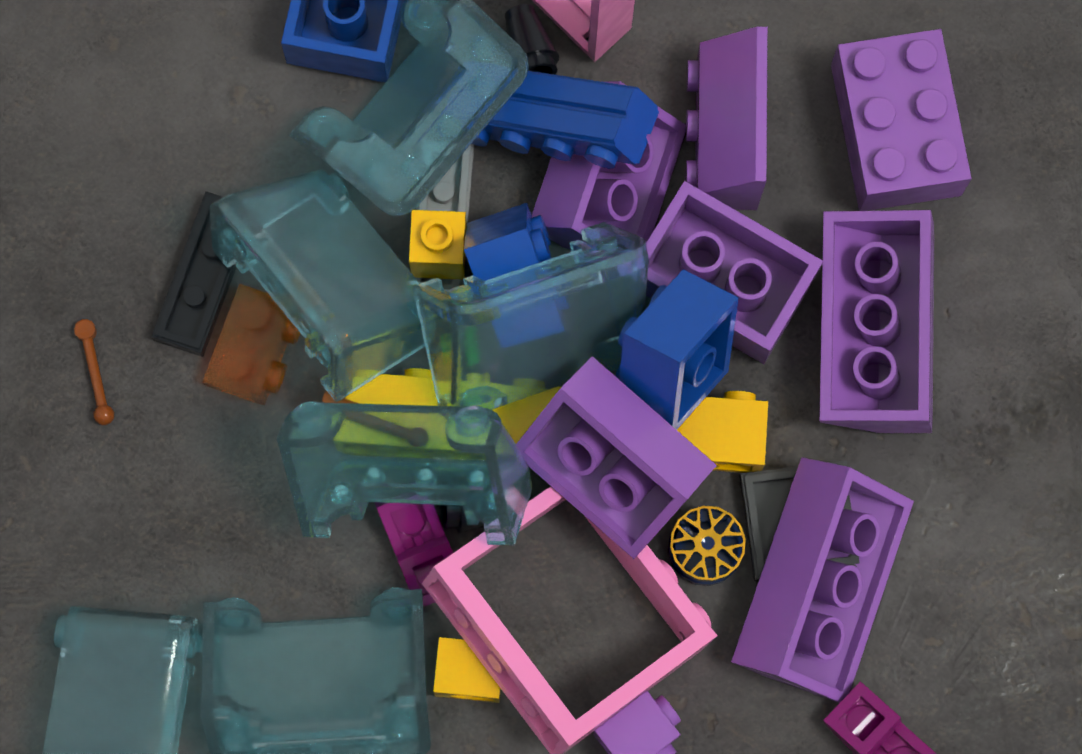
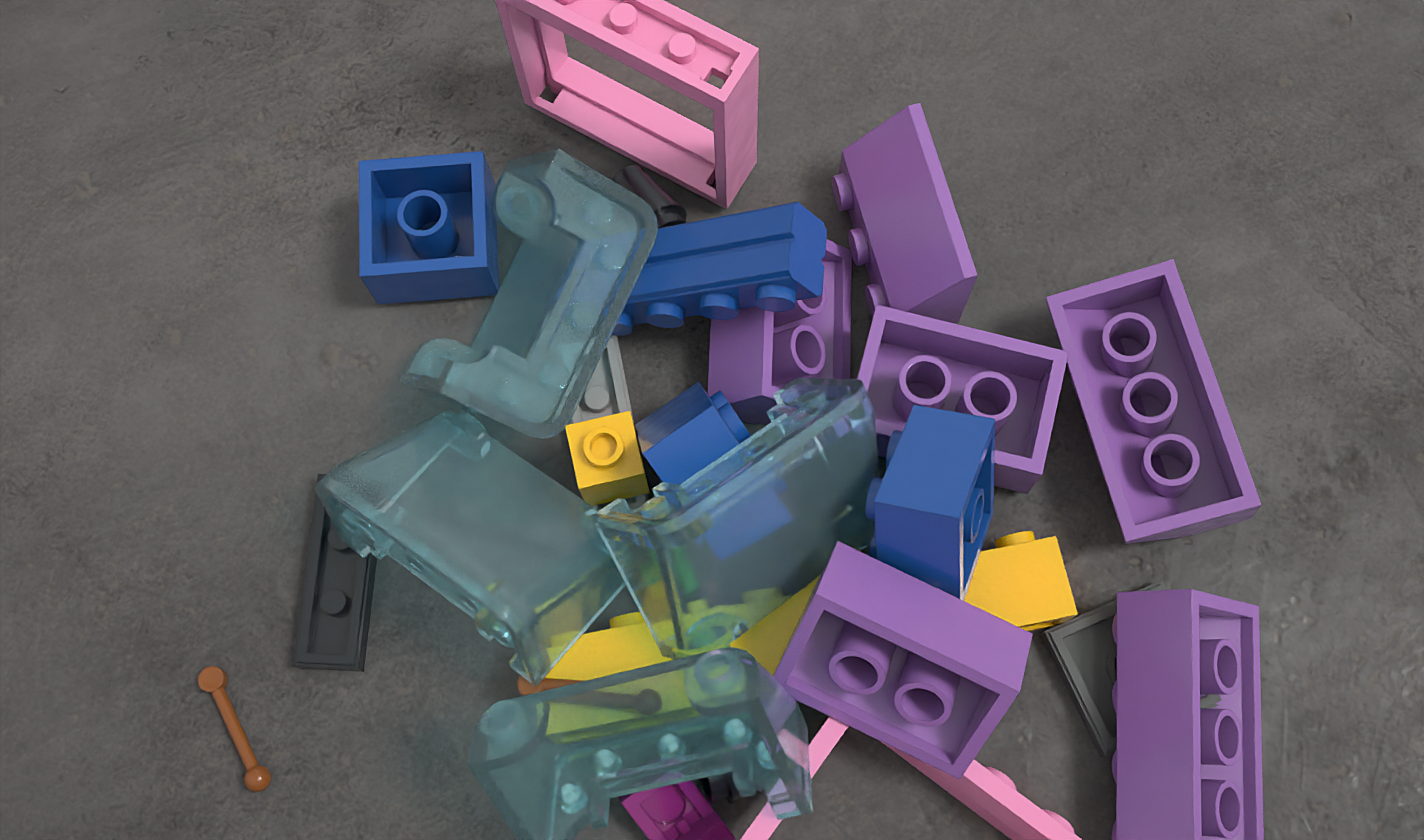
camera: 10 degrees left, 5 degrees down
(251, 347) = (417, 646): clear orange bracket -> none
(706, 545) = (1038, 735): wheel -> none
(900, 120) = (1091, 176): medium lavender brick -> none

